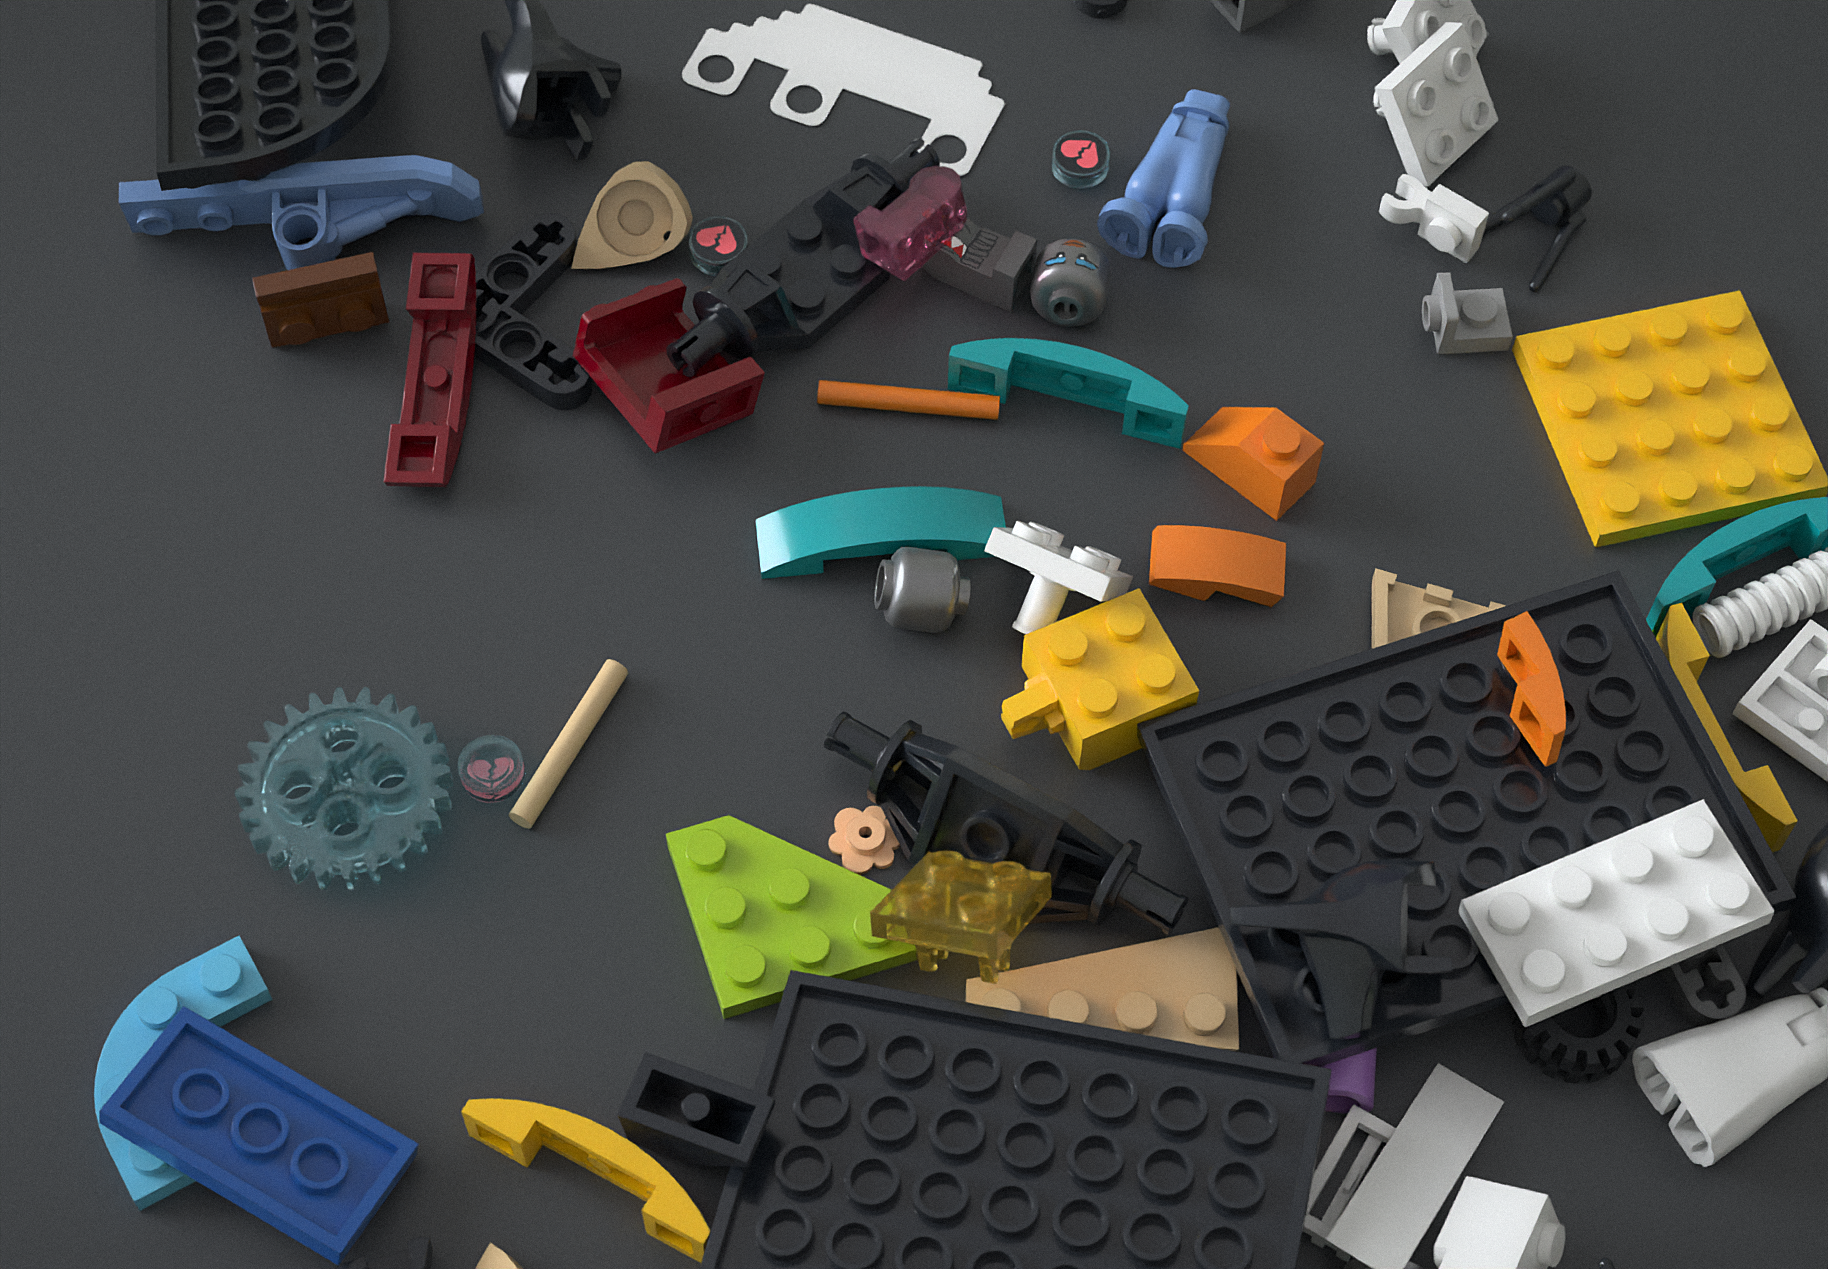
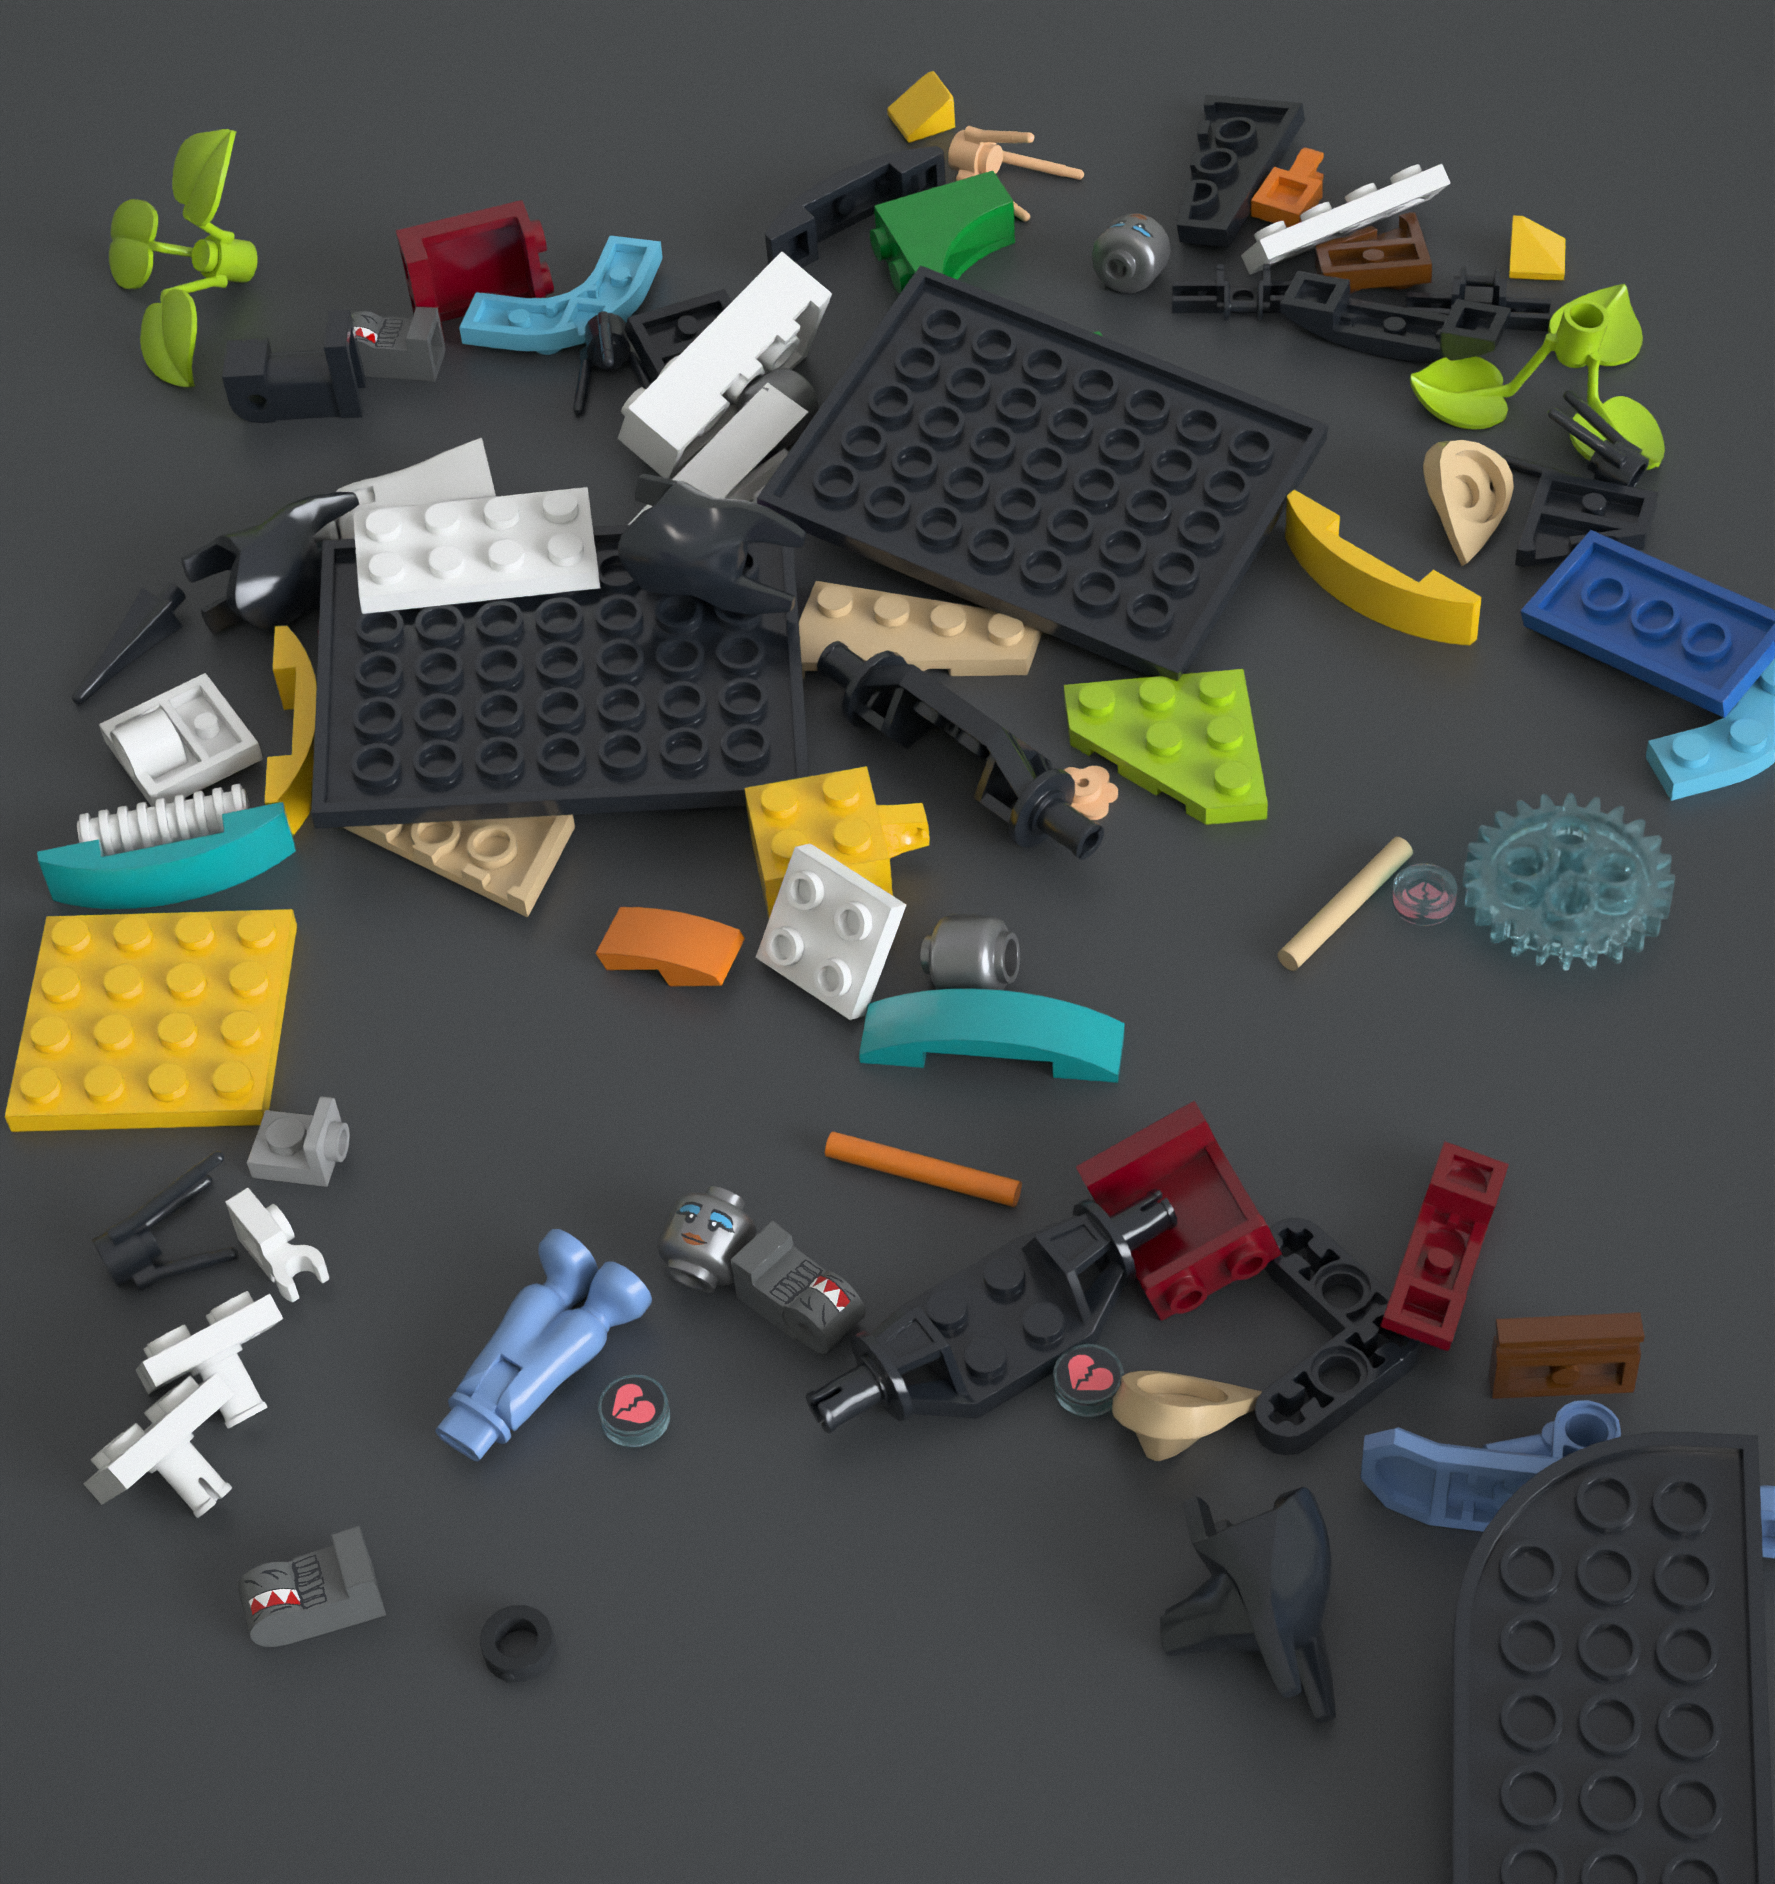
camera: 160 degrees left, 10 degrees down
(693, 1115) = (1285, 571): black slope -> none
(852, 55) = (862, 1625): white piece -> none
(915, 223) = (861, 1284): clear pink leg -> none
(962, 909) = (1018, 662): clear yellow plate -> none
(1074, 374) = (816, 1166): teal slope -> none
(1259, 455) = (587, 1031): orange slope -> none
(1539, 696) = (450, 701): orange slope -> none

